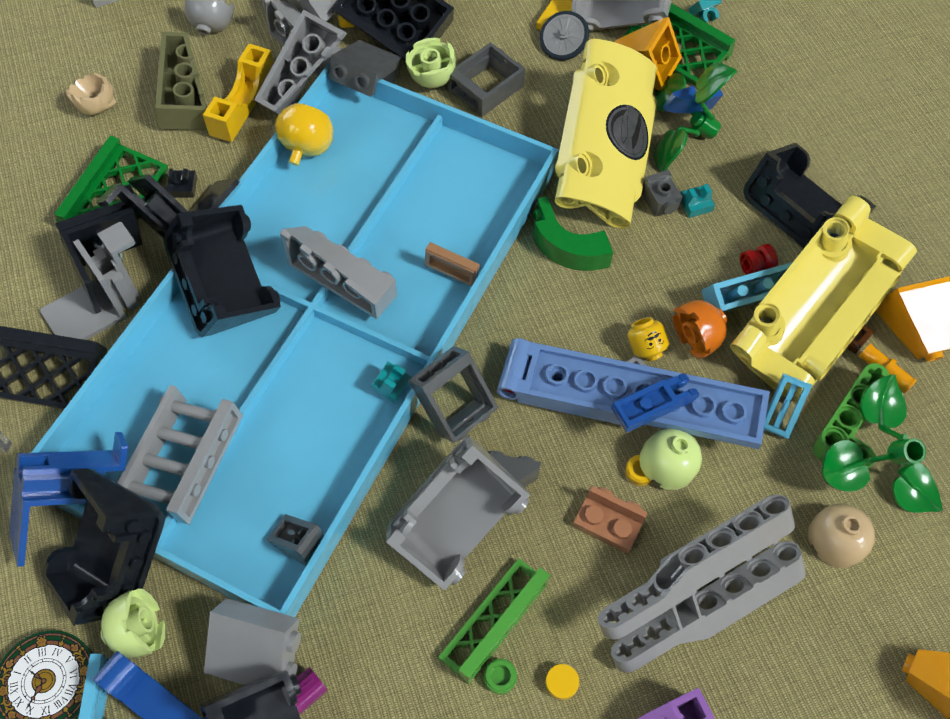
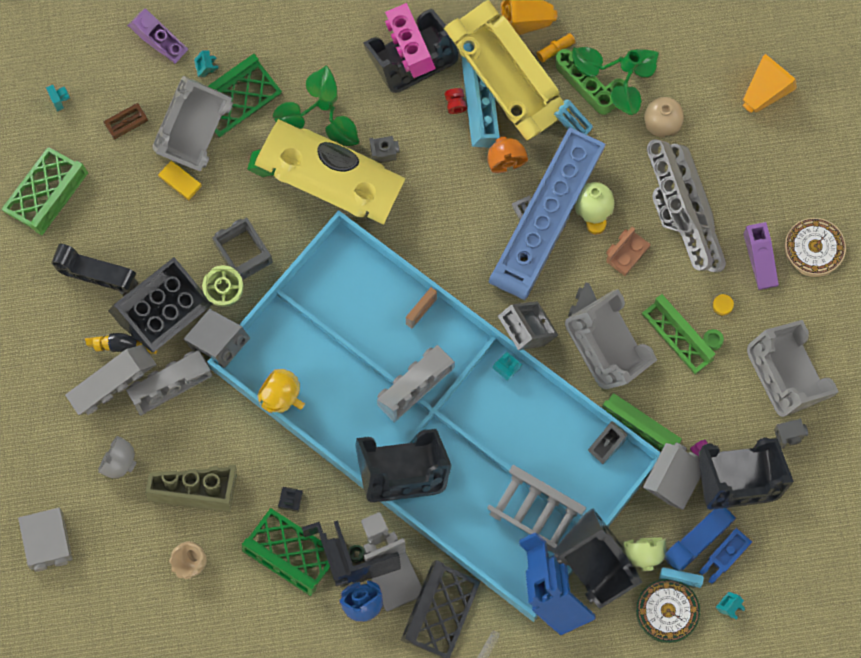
camera: 75 degrees left, 10 degrees up
(41, 271) = (362, 601): none -> blue cylinder
(158, 206) = (334, 488): black piece -> none
(228, 115) = (205, 435): yellow arch -> none
(300, 56) = (208, 379): light grey wedge -> none
(338, 587) = (640, 423): none -> bright green fence
(564, 35) = (210, 180): light grey wheel -> none
(566, 248) = (414, 230): green arch -> none
(648, 338) = (505, 192): yellow head -> none
(653, 402) = (564, 201): blue hinge -> none
(657, 44) = (251, 124): light orange slope -> none
(684, 101) = (312, 109): blue slope -> none
(697, 200) = (392, 126): teal tile -> none
(818, 186) = (409, 40): none -> dark pink brick

